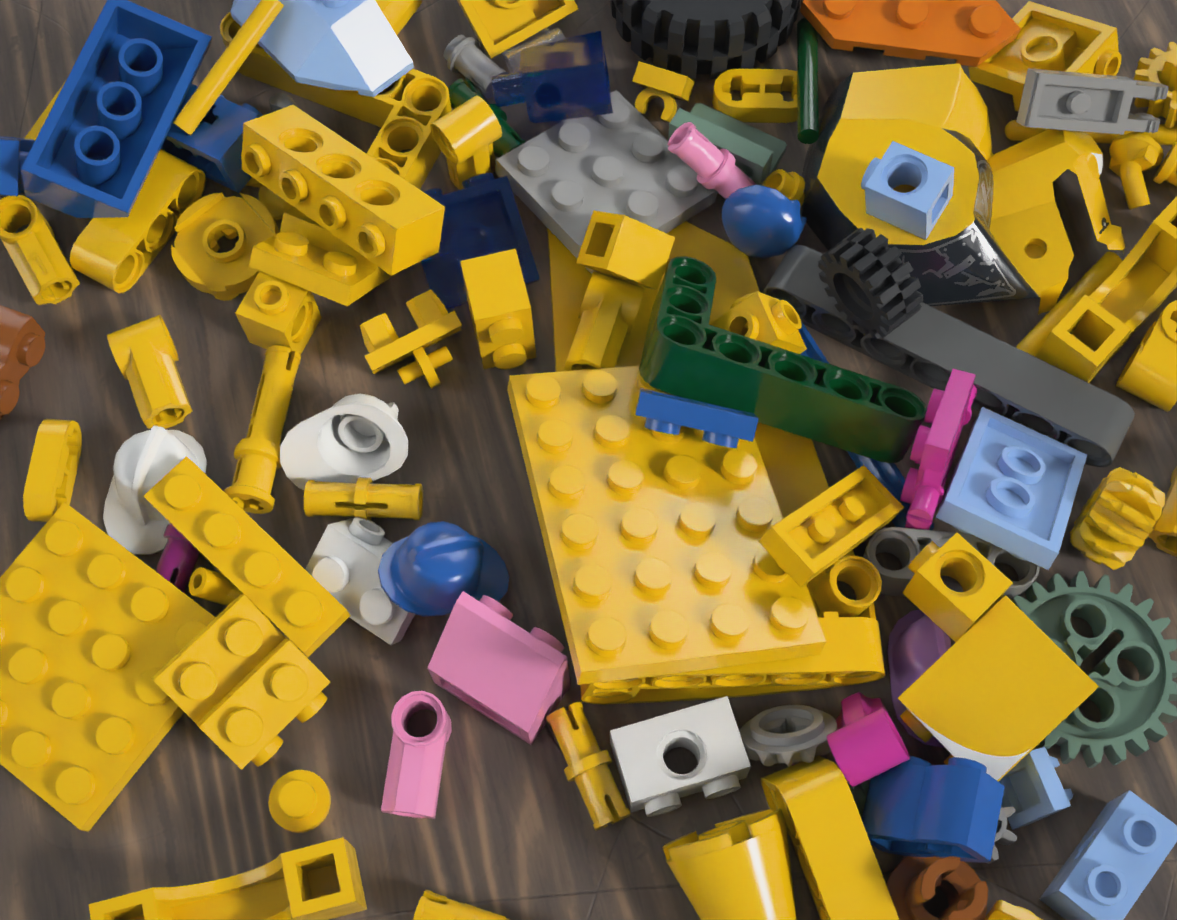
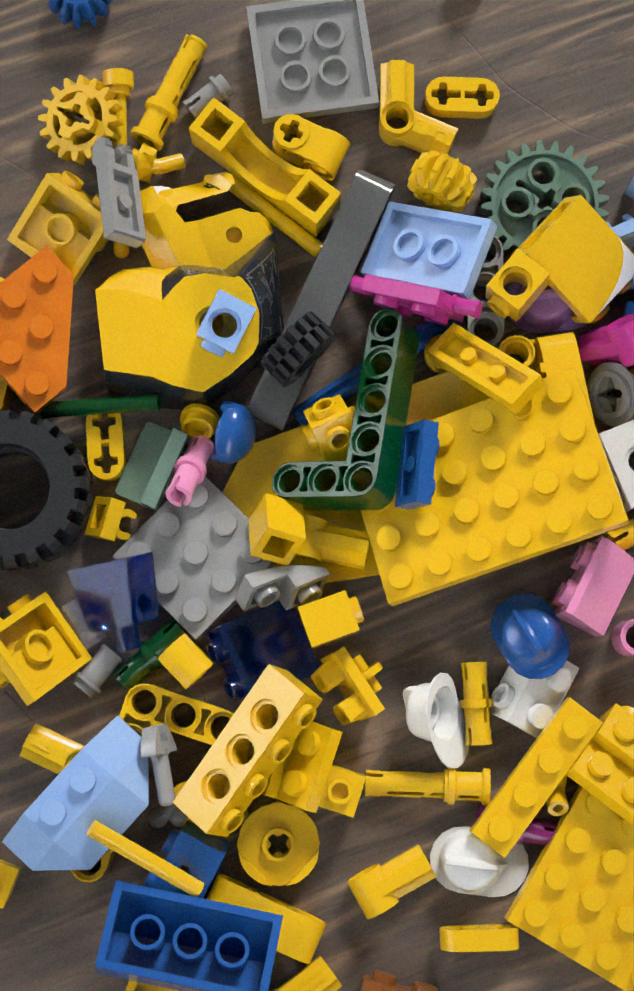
camera: 100 degrees left, 15 degrees up
(352, 98) = (157, 744): none -> light grey bar
(553, 280) = (289, 584): none -> light grey slope

